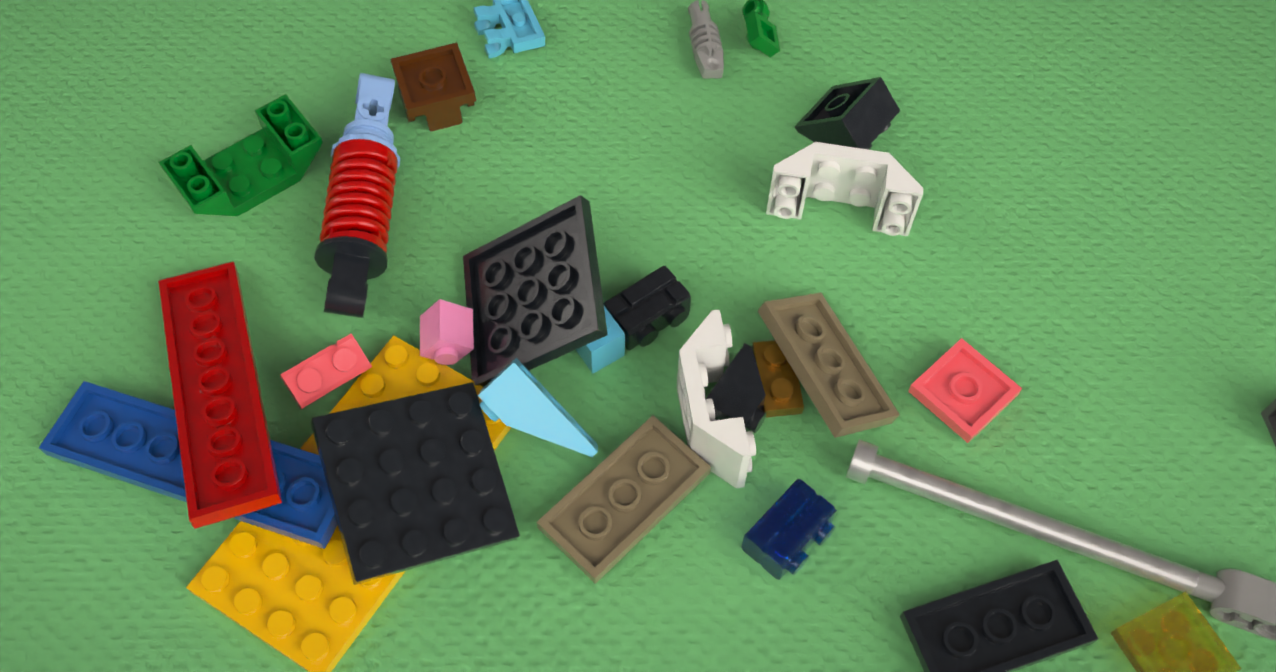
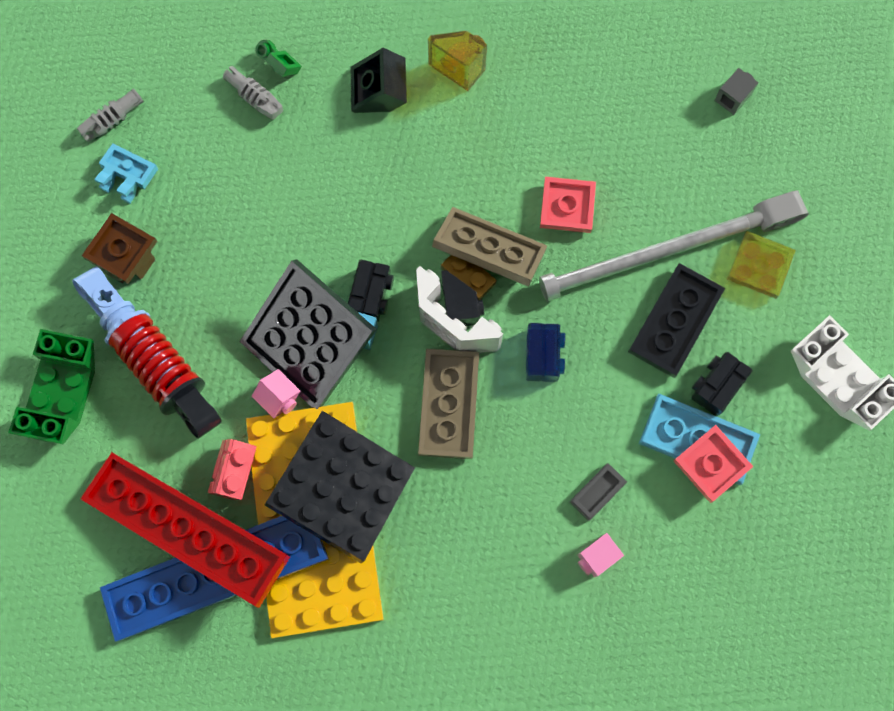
camera: 40 degrees left, 15 degrees up
(529, 407) = (363, 399): medium azure slope -> none
(848, 177) = (417, 123): white slope -> none
(962, 146) = (458, 56): none -> clear yellow slope

